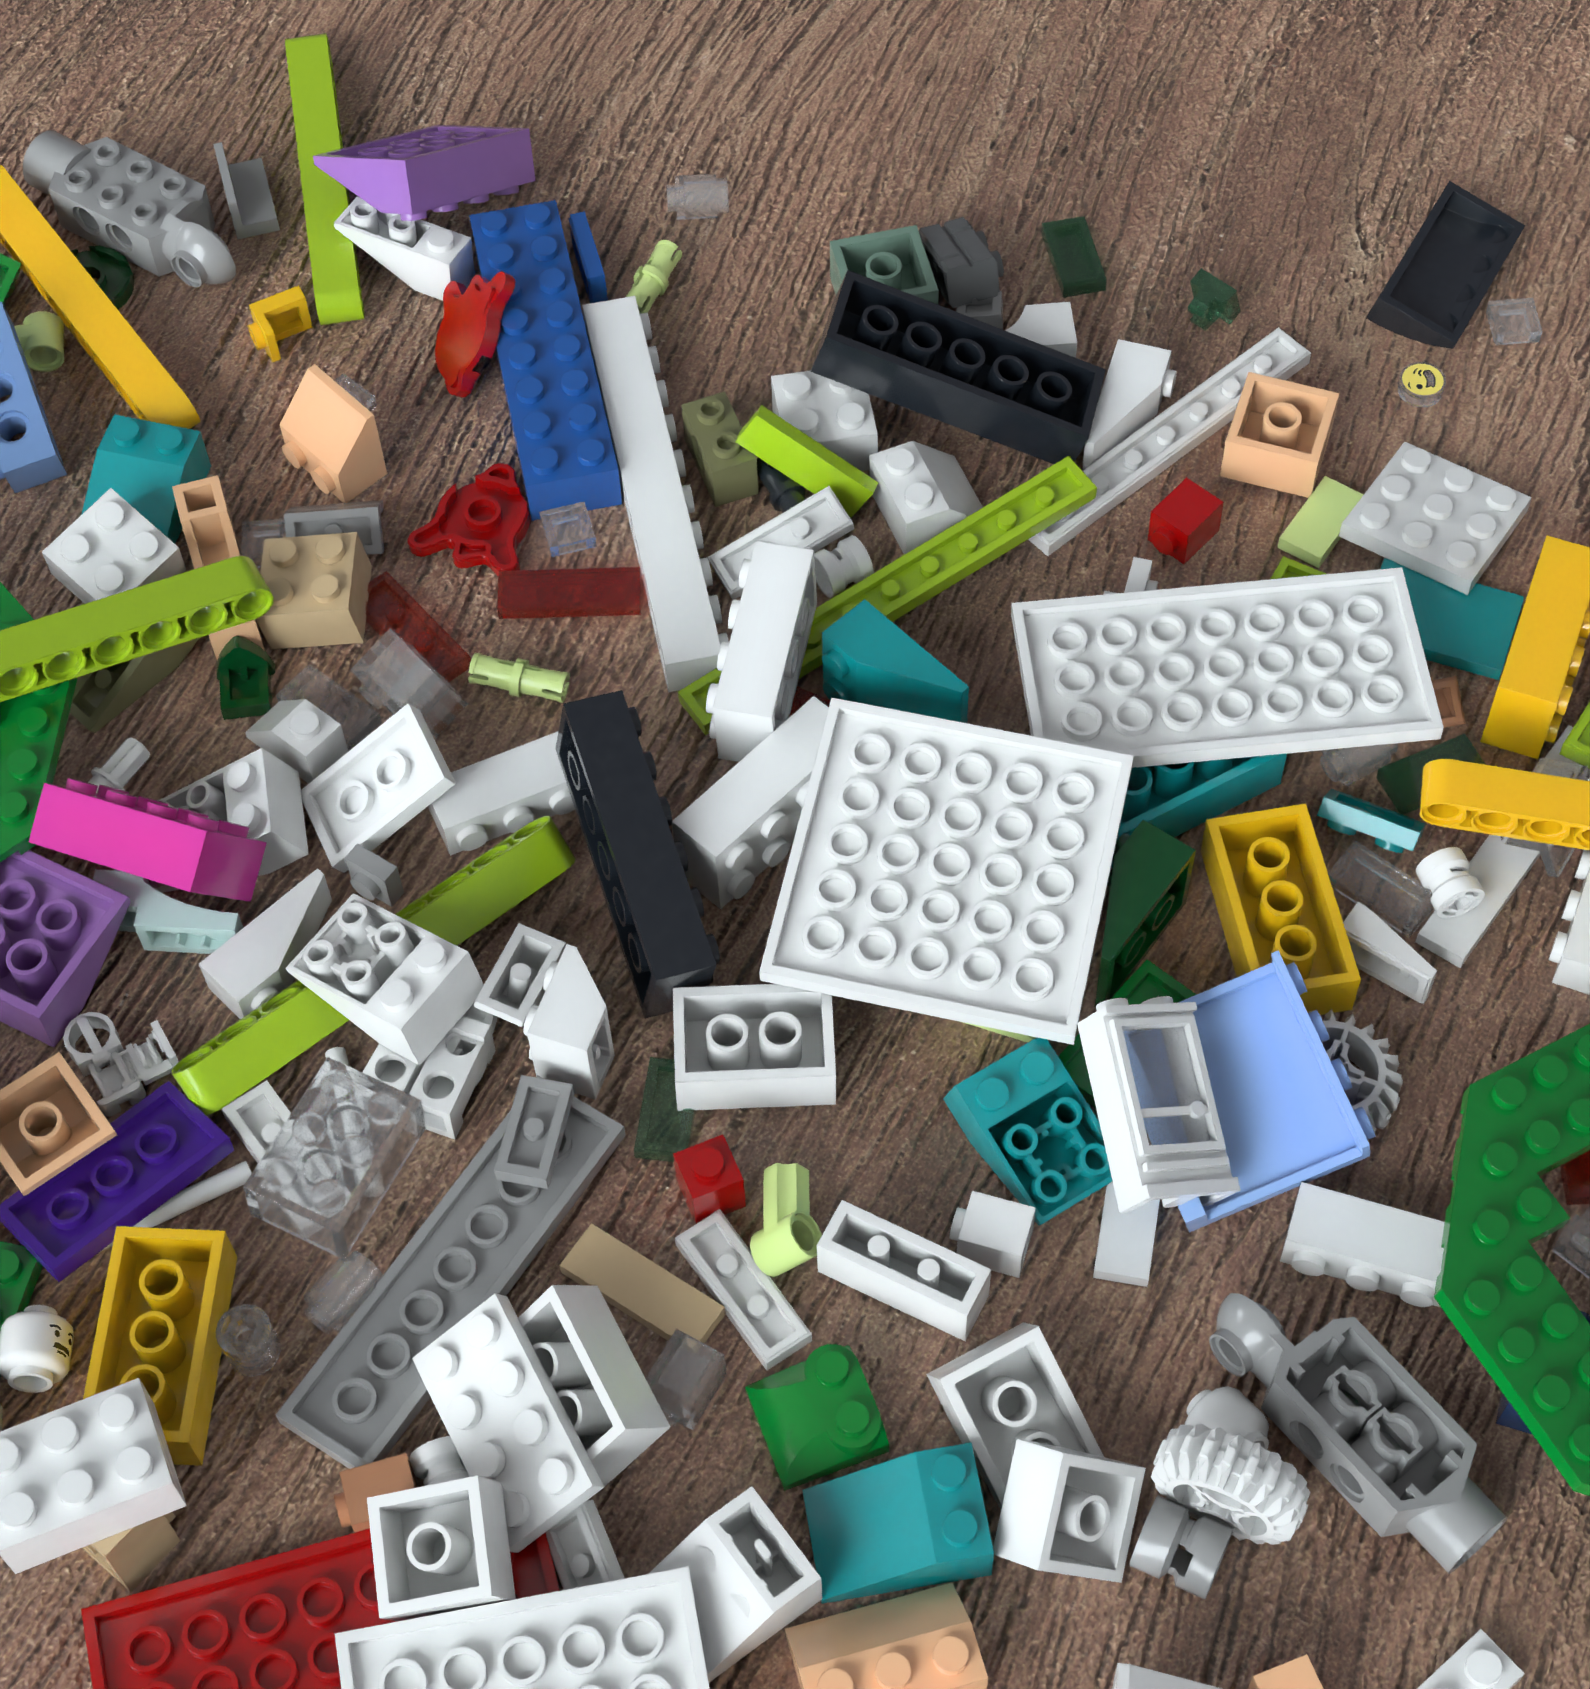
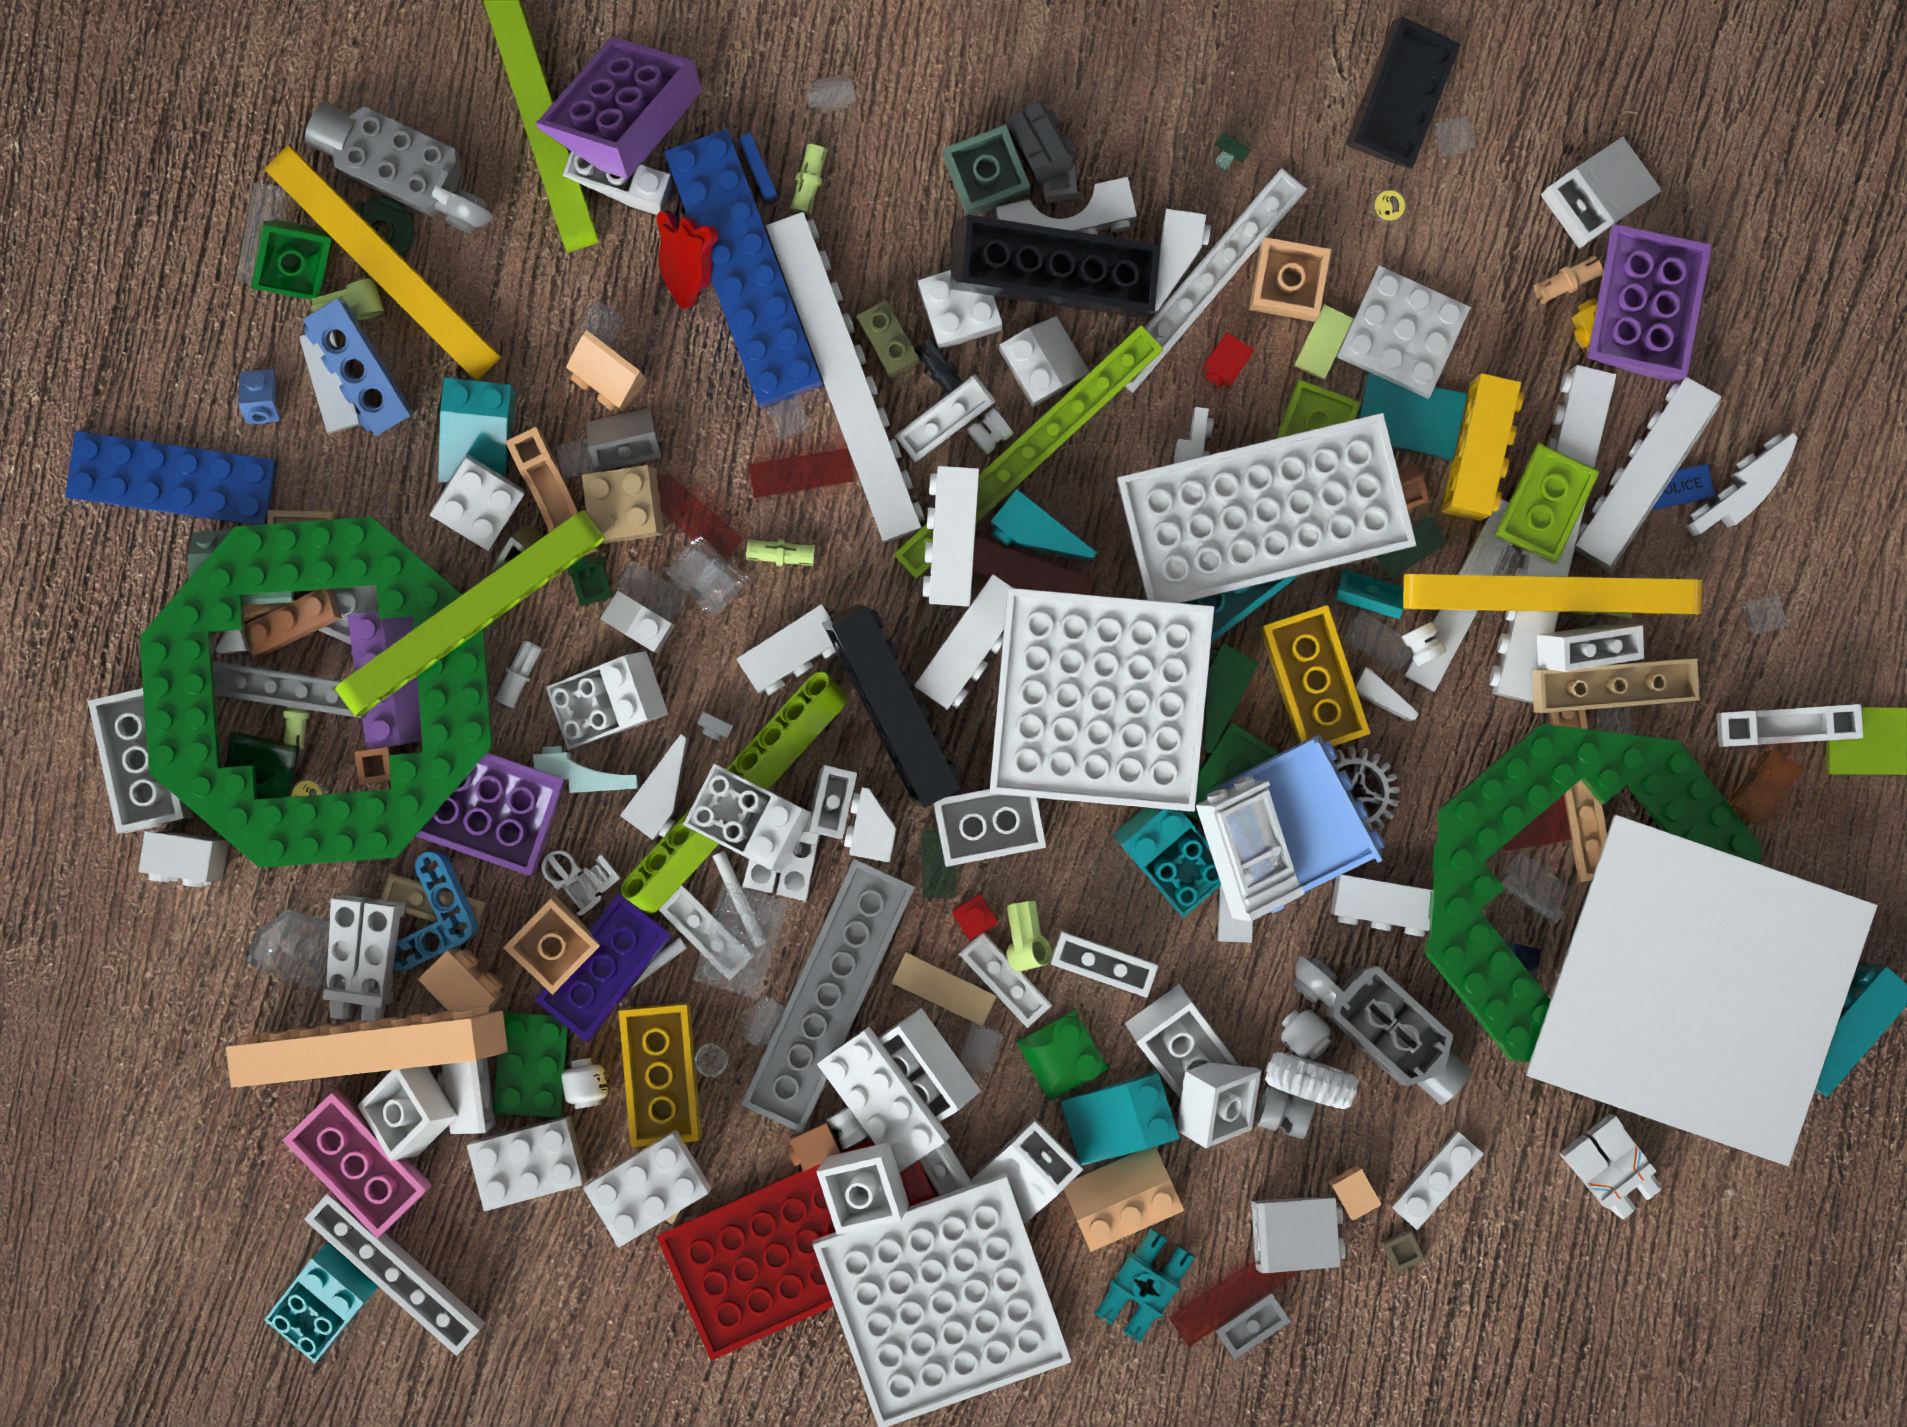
camera: 10 degrees left, 30 degrees up
(148, 839) = (567, 741): dark pink brick -> none
(247, 195) = (481, 131): light grey panel -> none
(277, 319) = (536, 252): yellow bracket -> none
(377, 786) = (705, 665): white plate -> none
(478, 522) = (725, 418): red tile -> none
(534, 1132) = (861, 905): light grey plate -> none
(805, 459) = (955, 355): lime tile -> none
(994, 1232) = (1154, 927): white brick -> none
(1073, 257) = (1123, 112): clear green tile -> none

